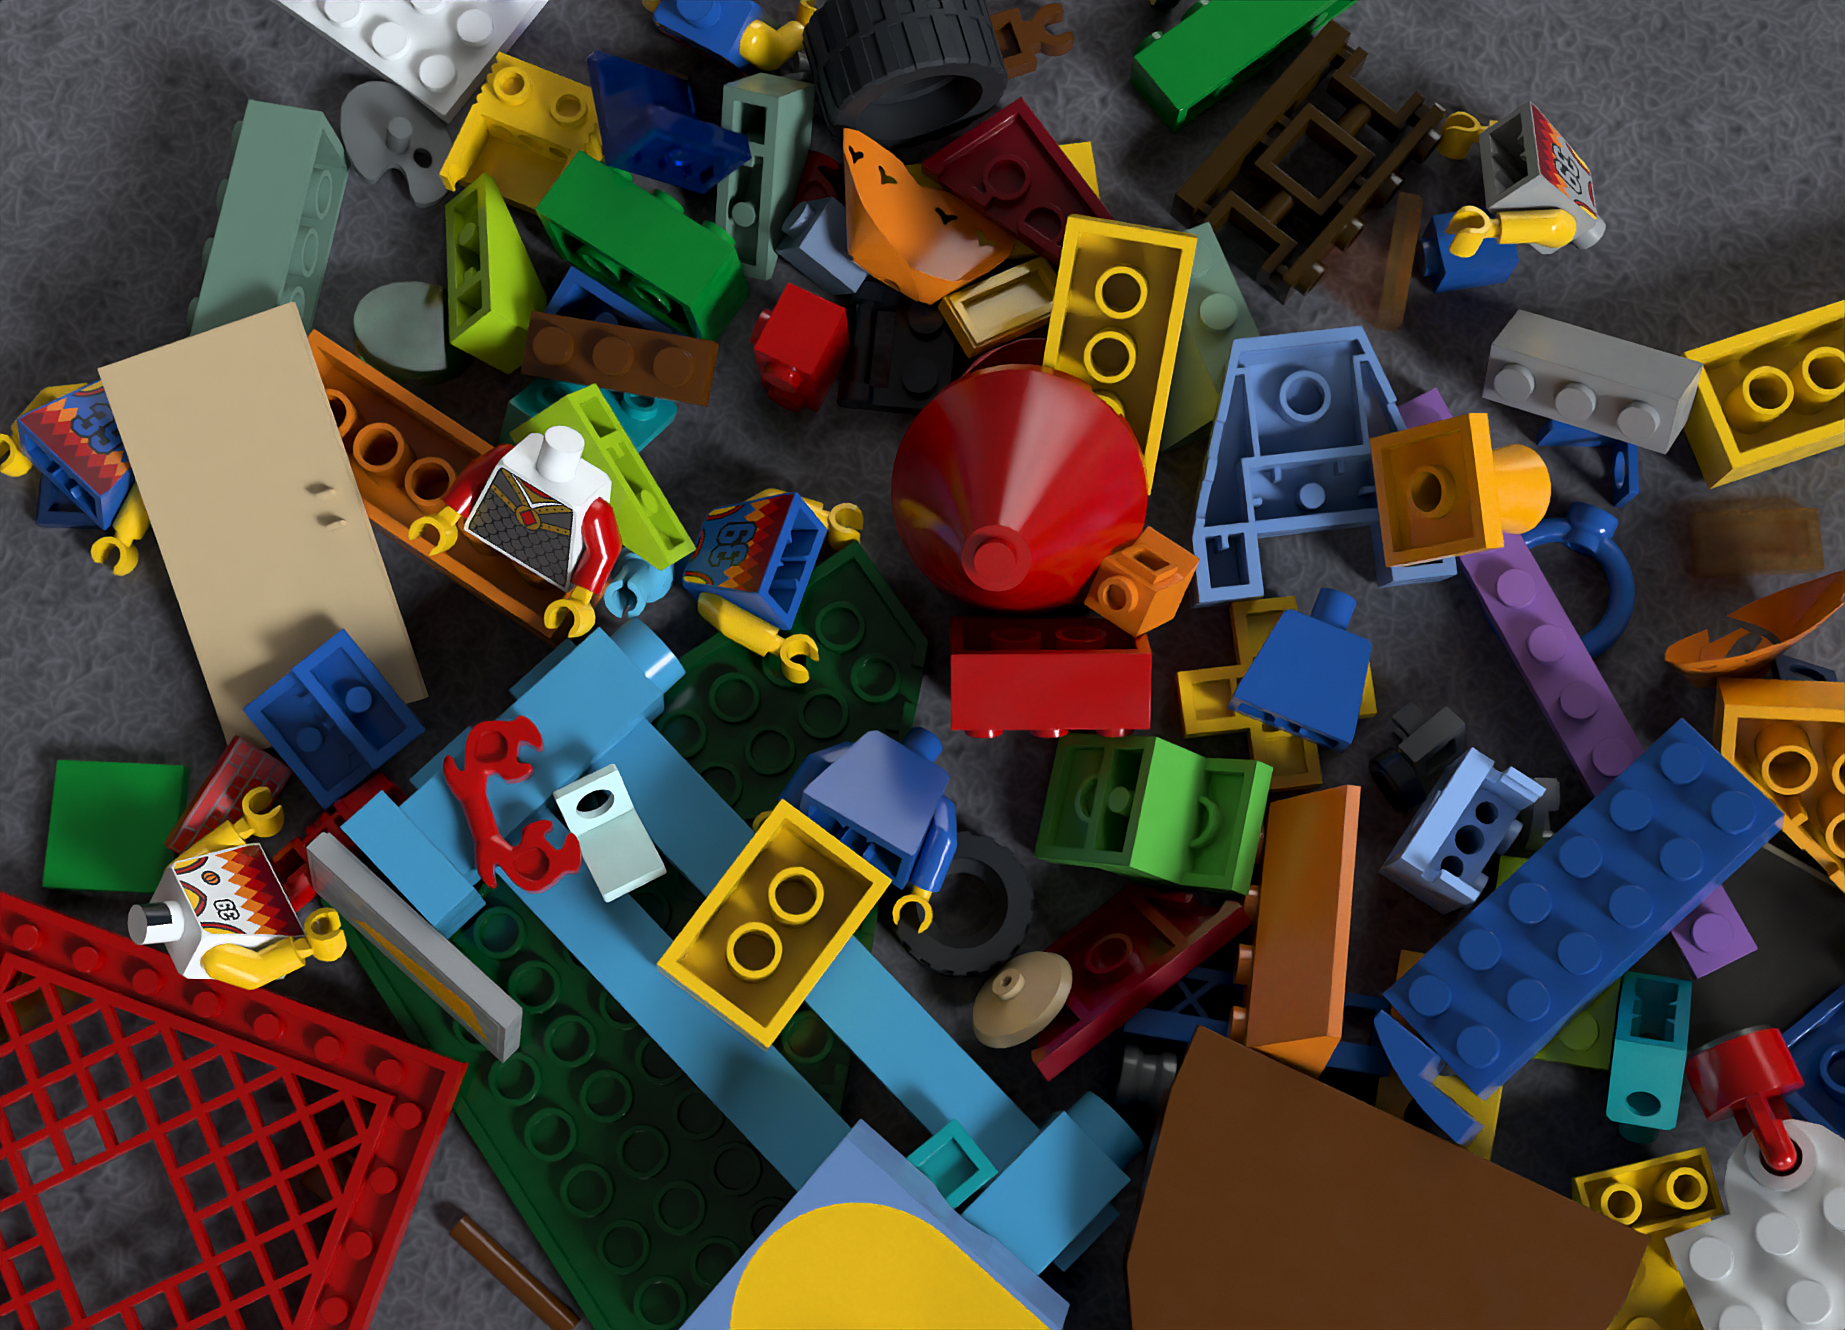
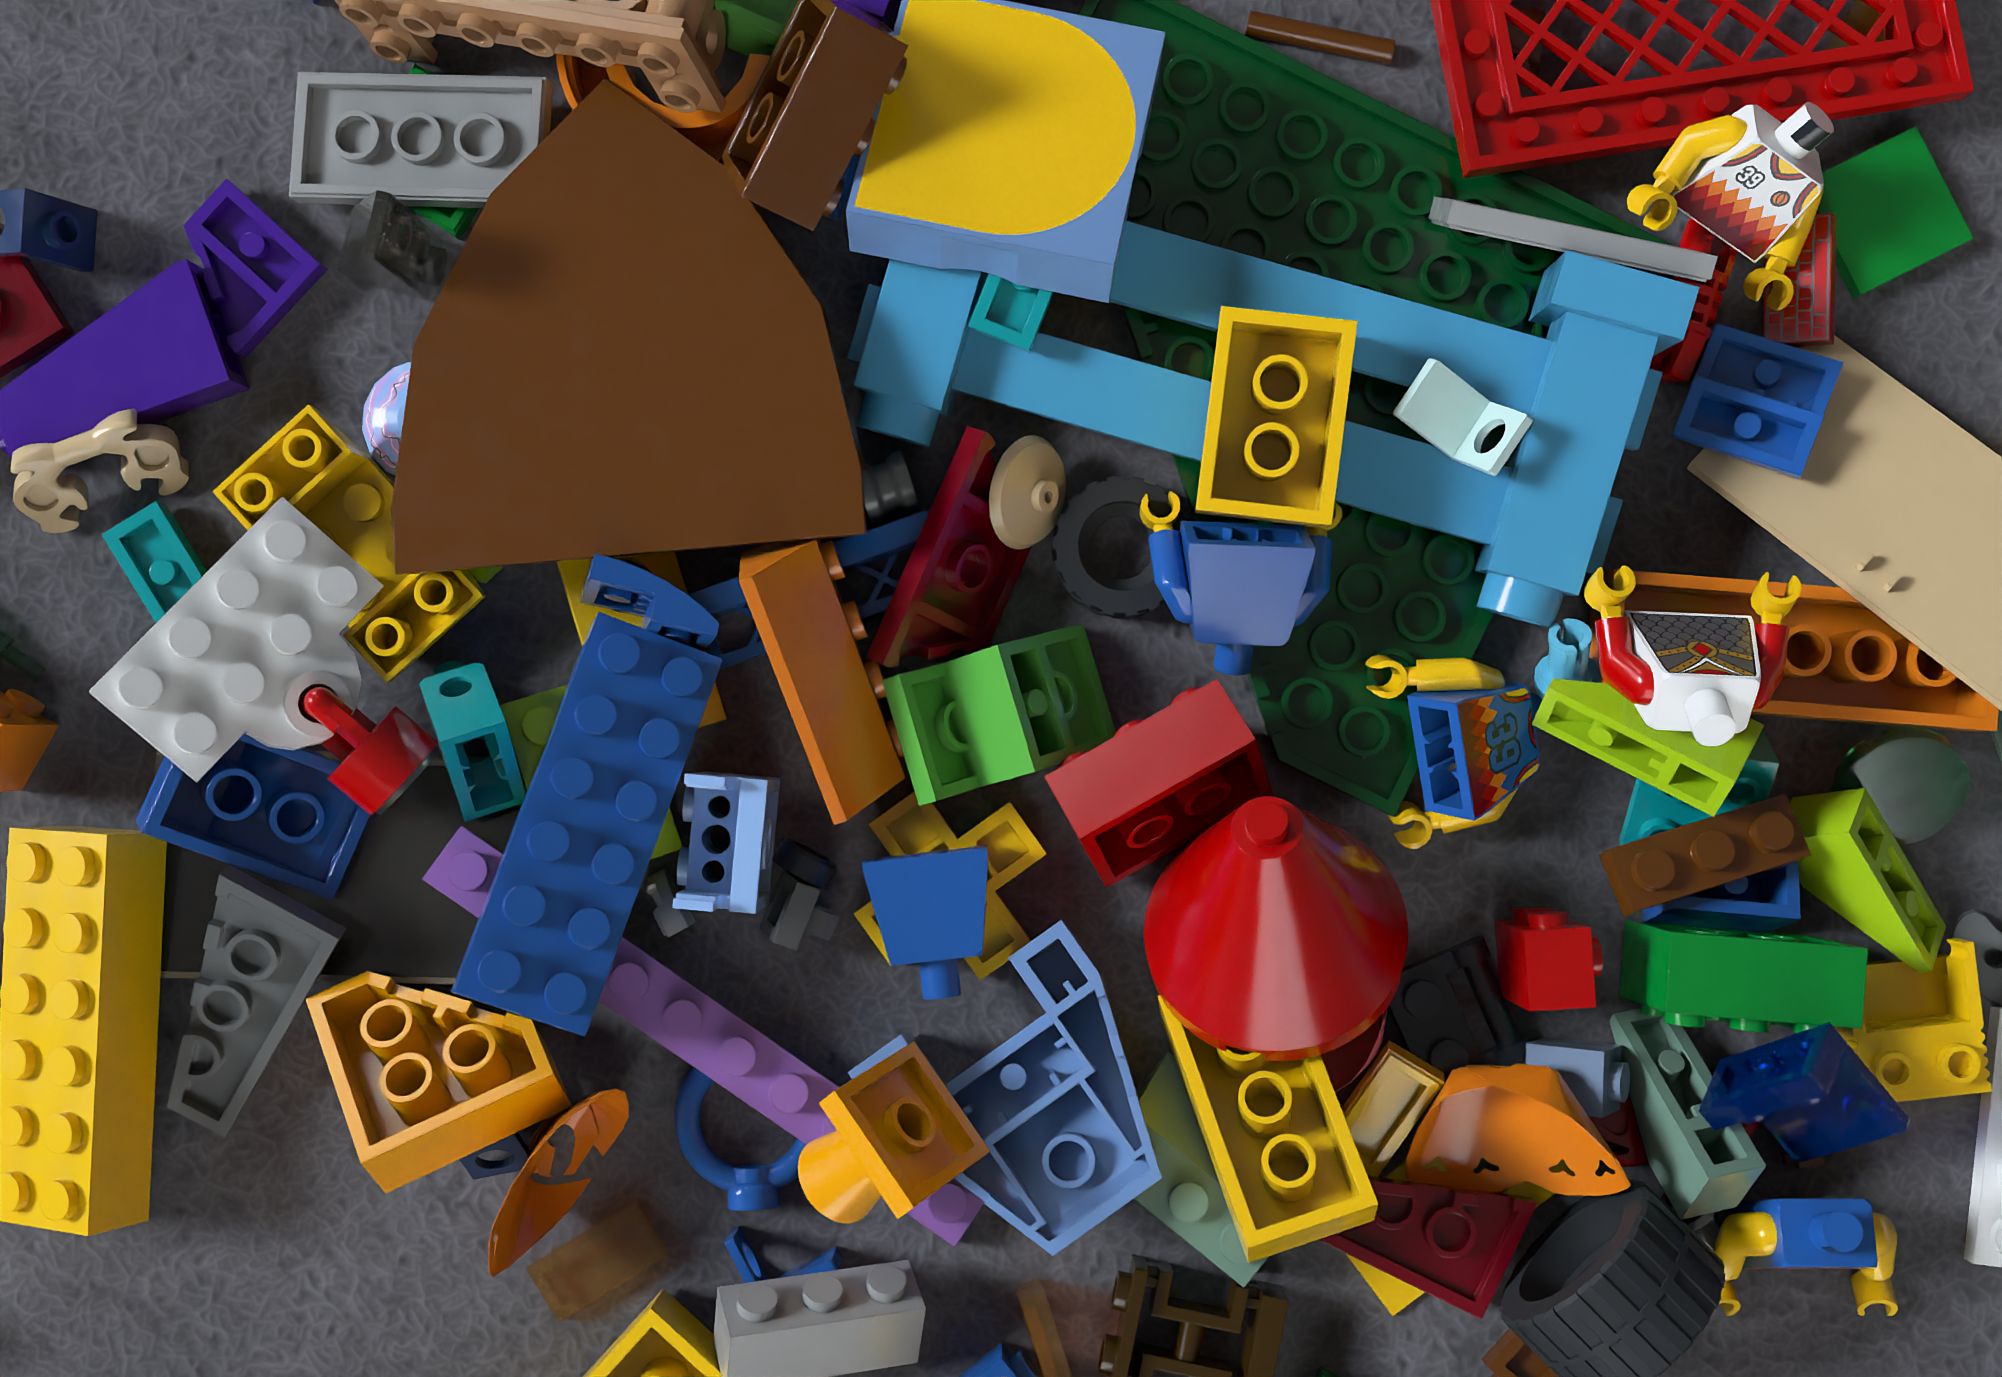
camera: 150 degrees right, 10 degrees up
(495, 750) = (1605, 431): red helmet -> none
(1142, 583) = (1121, 907): orange window -> none

